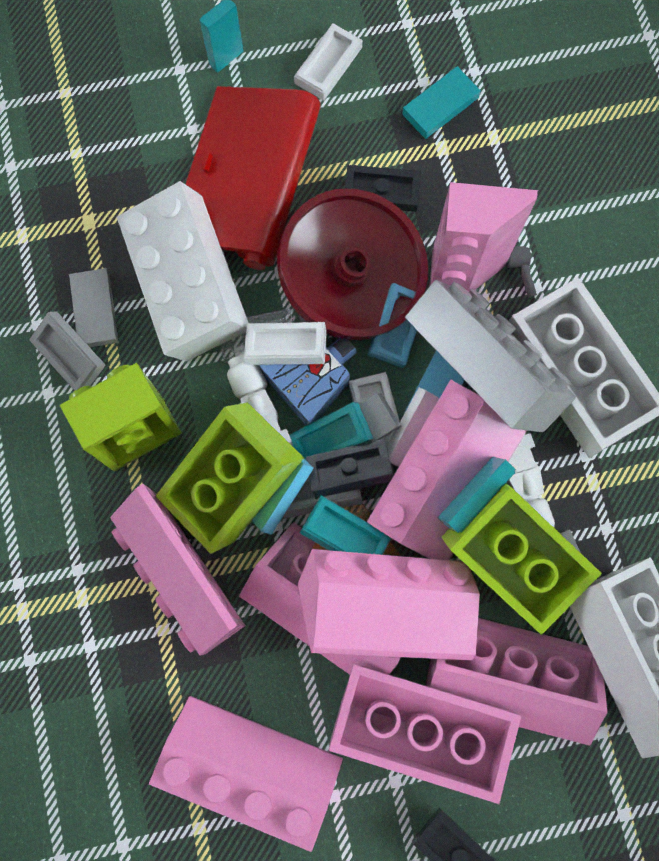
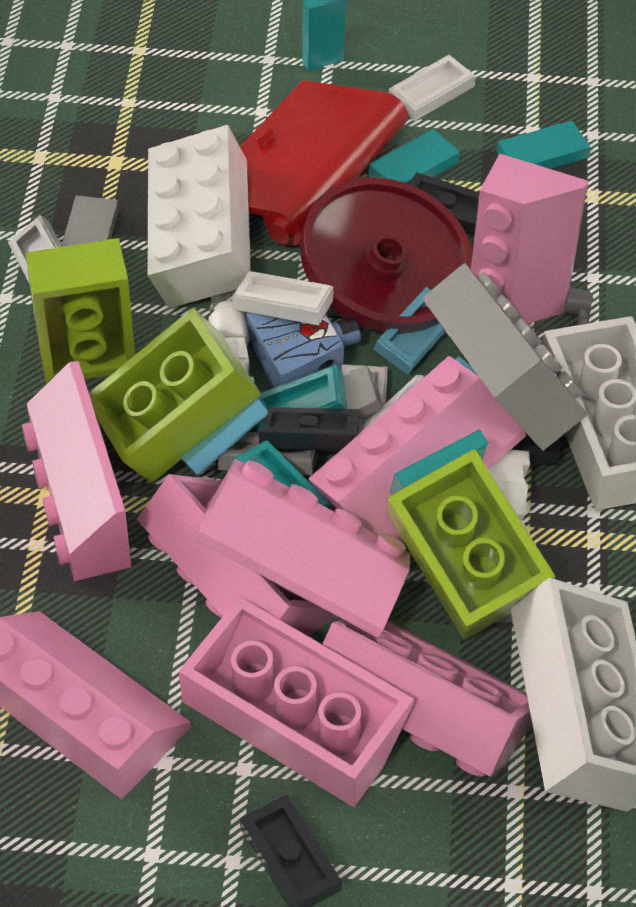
camera: 15 degrees right, 25 degrees down
(339, 149) = (425, 155): none -> teal tile

